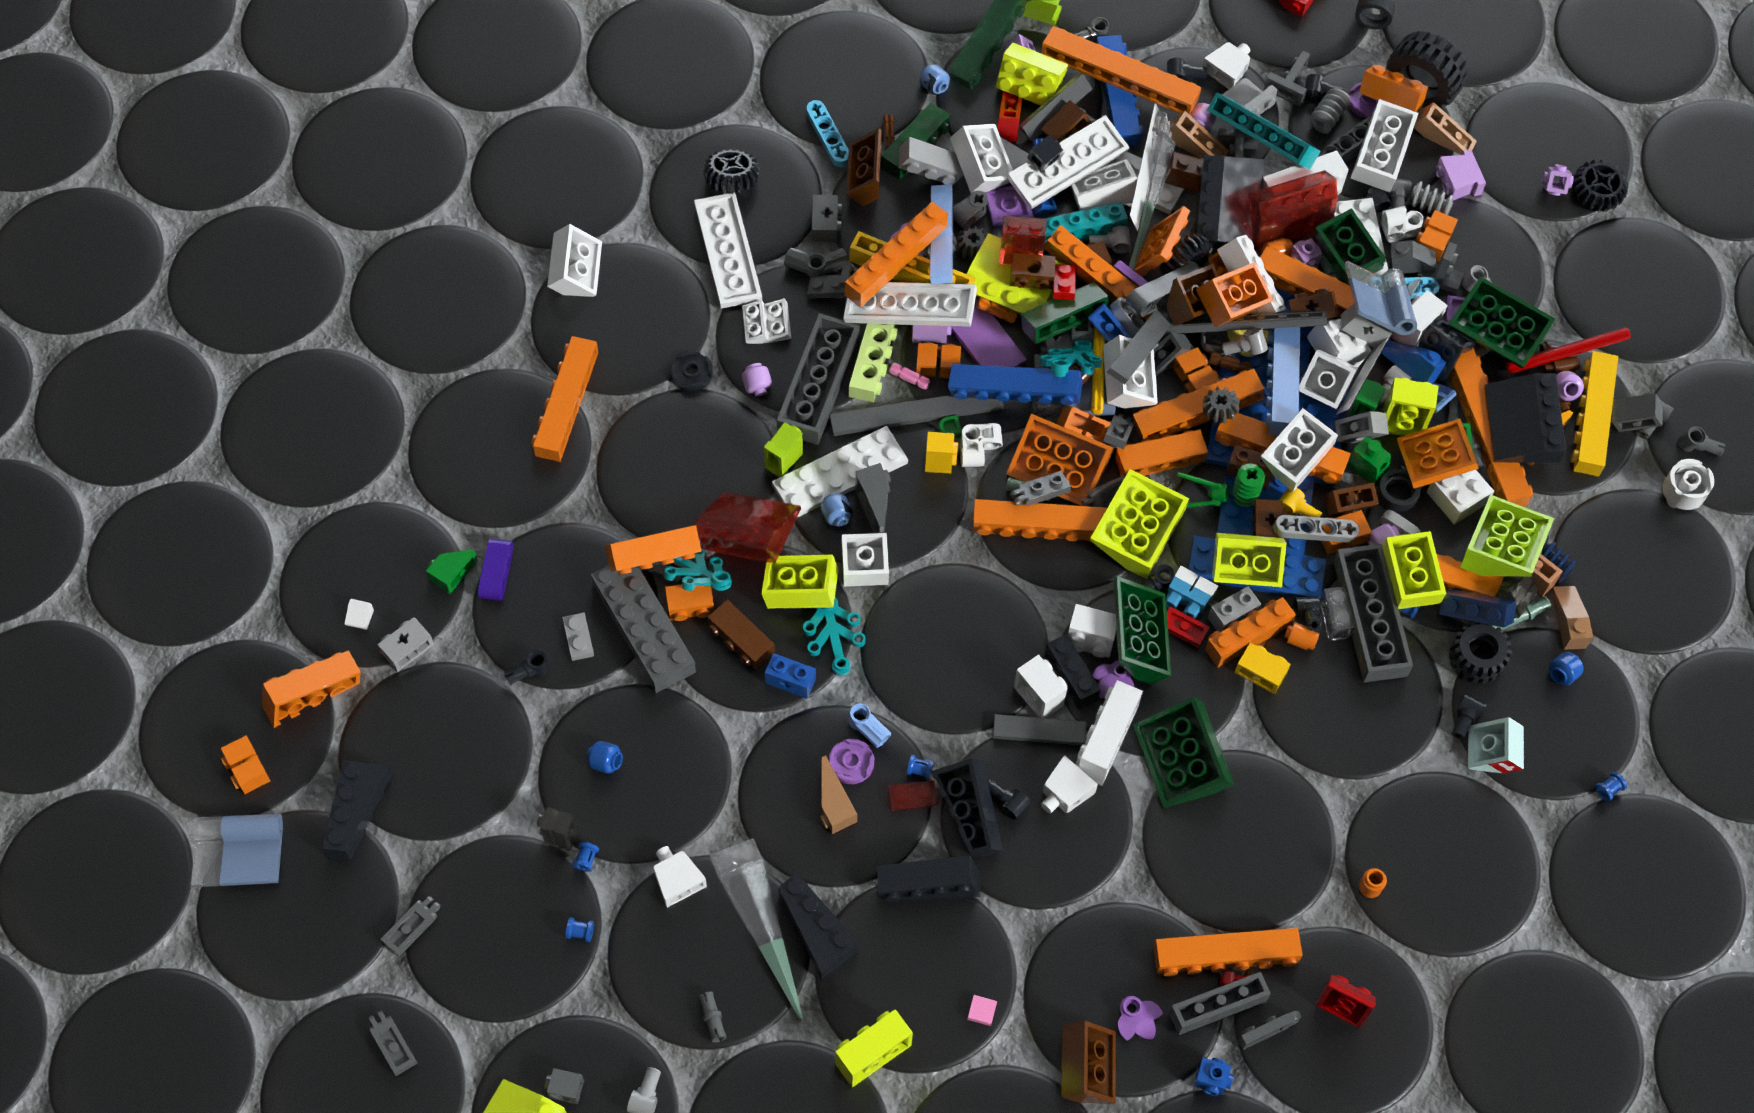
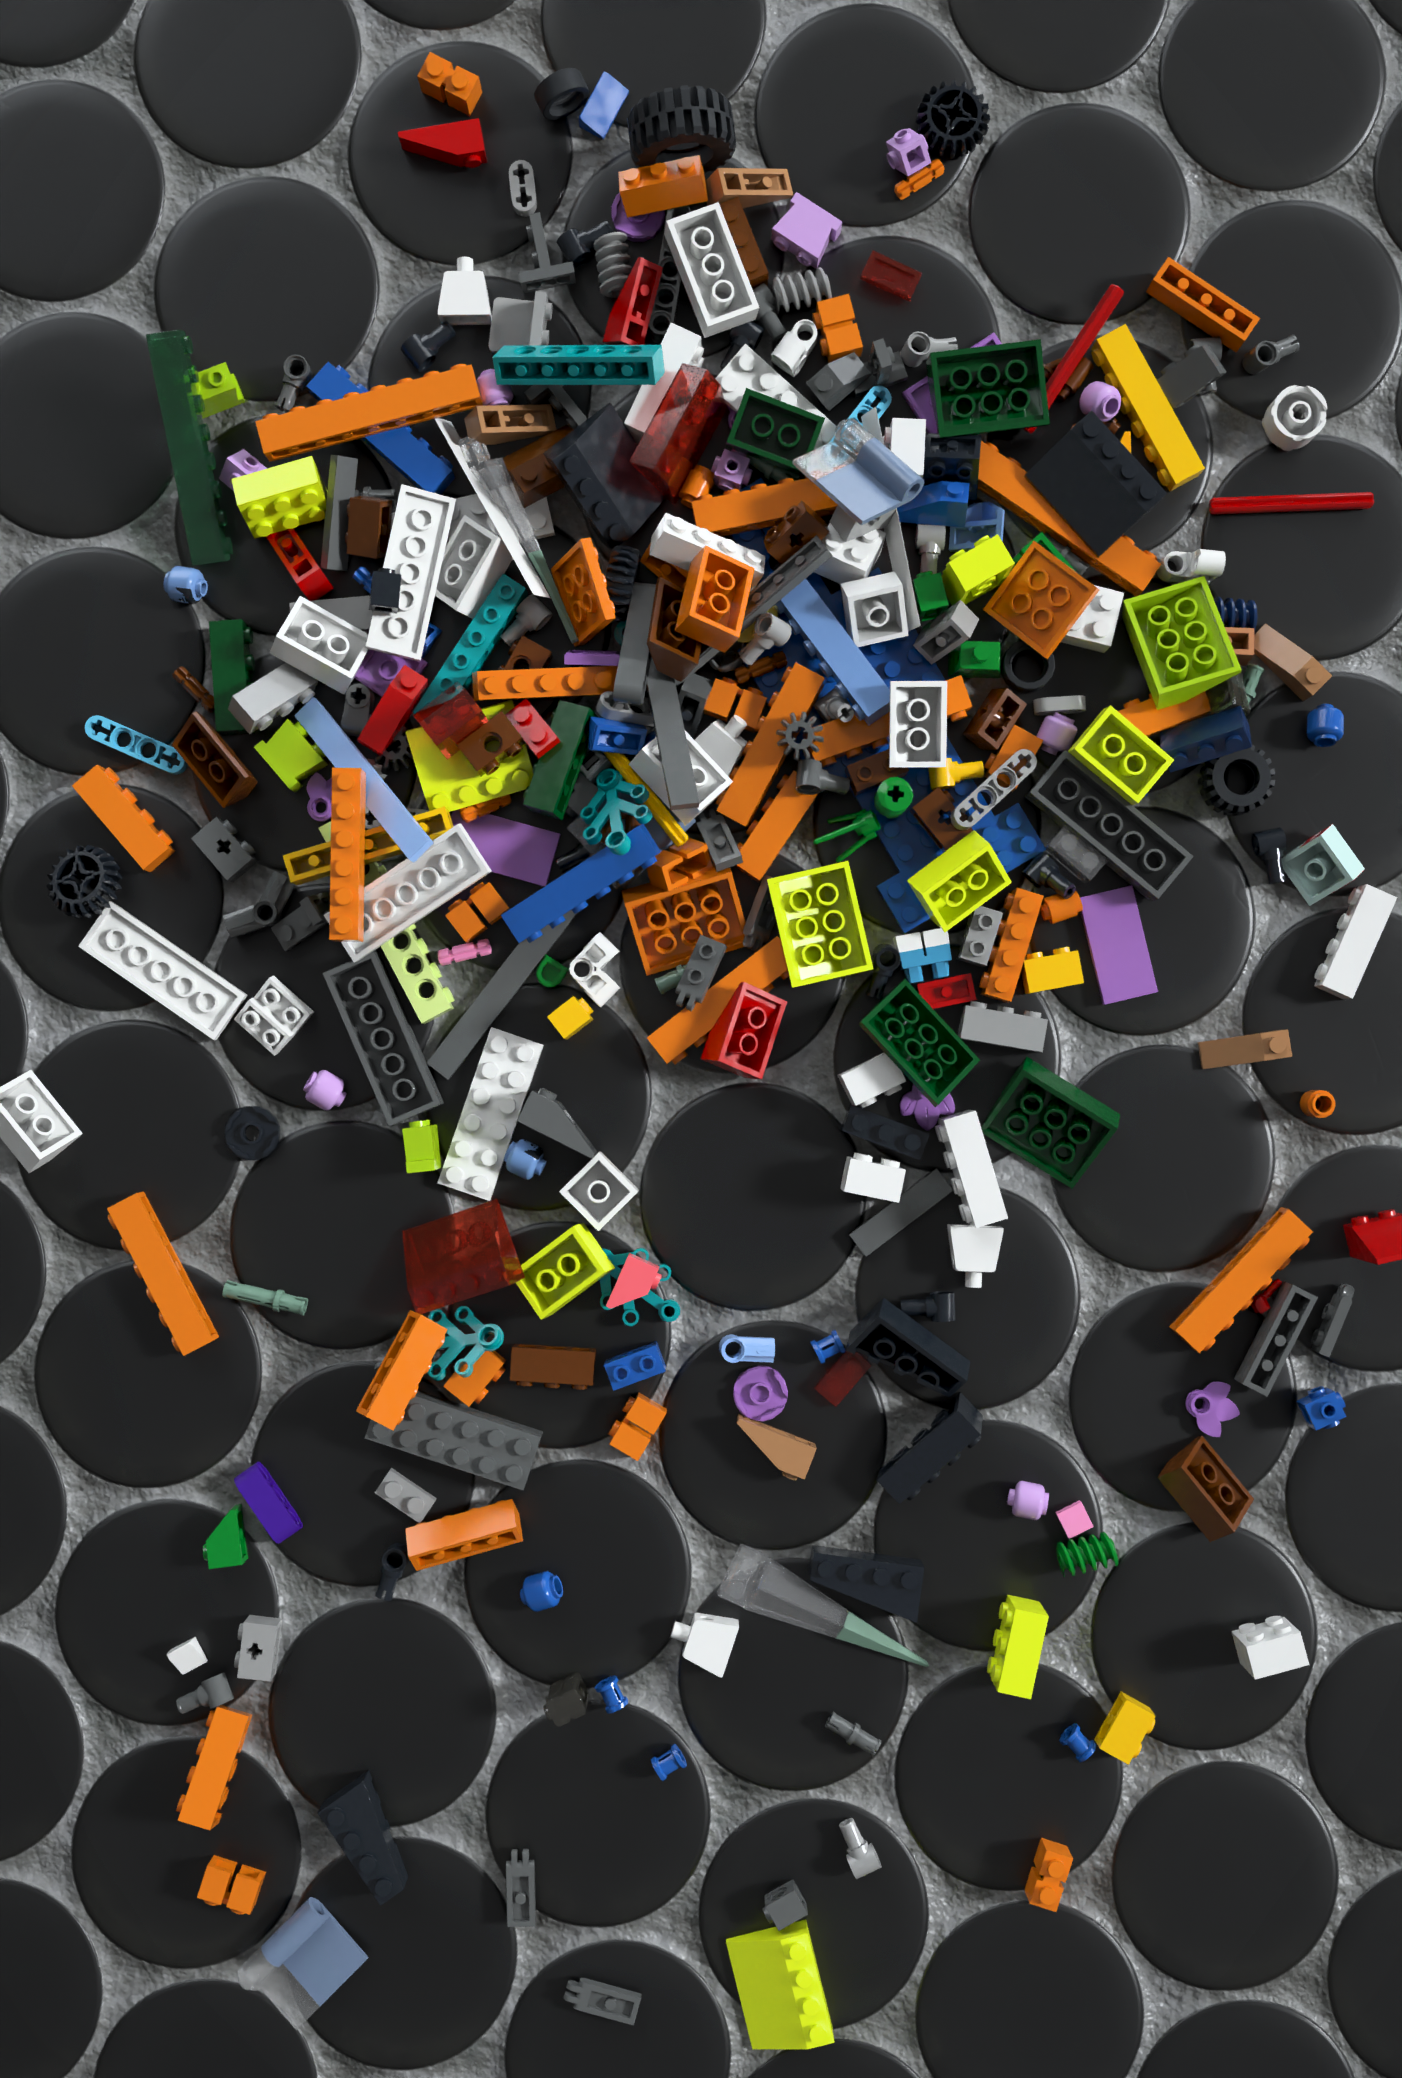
camera: 40 degrees left, 25 degrees up
(356, 643) = (210, 1693): none -> dark grey pin
(592, 682) = (463, 1534): none -> orange brick
(614, 466) = (276, 1300): none -> sand green pin
(768, 708) = (629, 1437): none -> orange piece
(784, 160) = (124, 818): none -> orange brick
(836, 622) = (634, 1281): none -> coral slope
(909, 199) = (292, 754): none -> lime hips
(963, 967) = (1028, 1500): none -> lavender head
(971, 1034) = (1086, 1553): none -> green piece
(990, 217) = (393, 710): none -> red slope
(1038, 543) = (745, 1032): none -> red slope
(1170, 382) = (724, 742): none -> white torso
(1202, 674) = (1002, 1027): none -> light grey brick
(1208, 438) = (813, 779): none -> dark grey pin
(1255, 411) = (834, 707): none -> light grey pin
(1307, 39) = (517, 188): none -> light grey beam
(1319, 690) = (1117, 945): none -> medium lavender tile
(1329, 130) = (634, 305): none -> red slope
(1352, 814) = (1245, 1049): none -> medium nougat slope
(1389, 36) = (603, 106): none -> slope
(1415, 152) = (745, 242): none -> reddish brown brick
(1480, 809) = (1354, 941): none -> white brick
(1492, 234) = (891, 275): none -> clear red plate
(1553, 201) = (919, 179): none -> orange axle
(1560, 511) = (1192, 565): none -> white piece
(1648, 533) = (1288, 503): none -> red axle
(1677, 383) = (1202, 304): none -> orange brick

